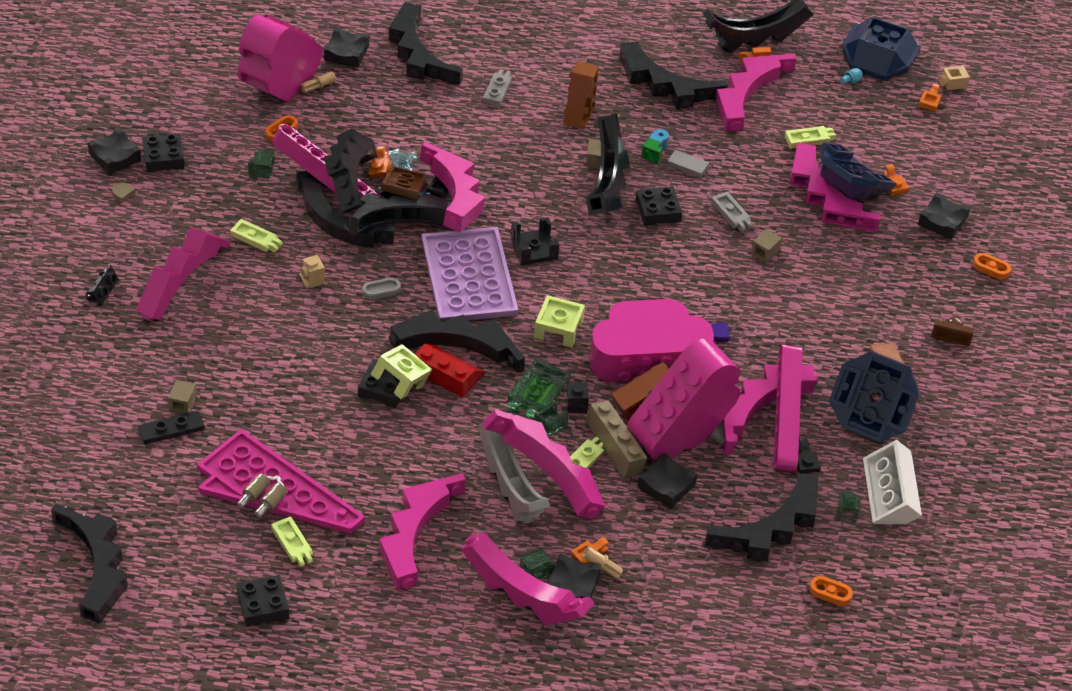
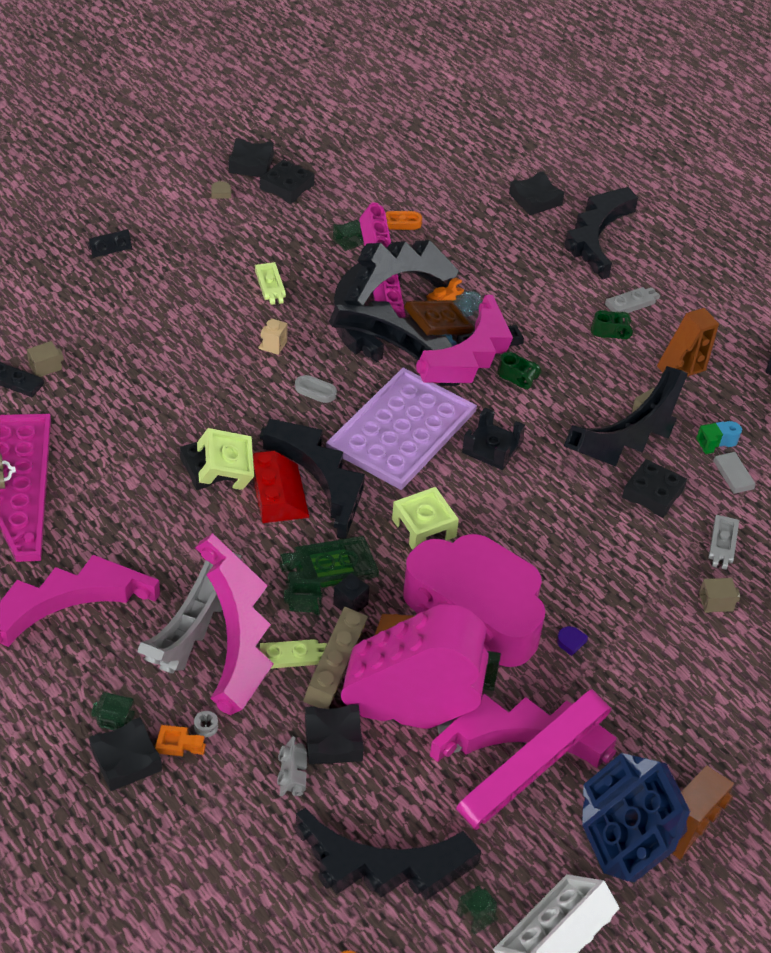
camera: 45 degrees right, 0 degrees up
(180, 263) = (170, 257): dark pink arch -> none
(277, 57) = (447, 156): dark pink brick -> none
(318, 82) = (480, 206): tan axle -> none
(491, 185) = (516, 370): none -> dark green piece
(498, 571) = (69, 720): dark pink arch -> none
(509, 113) = (609, 324): none -> dark green piece
(590, 537) = (206, 716): none -> light grey bush
(606, 565) = (171, 759): tan axle -> none
(666, 517) = (292, 757): none -> light grey hinge
(807, 460) = (501, 828): black plate -> none

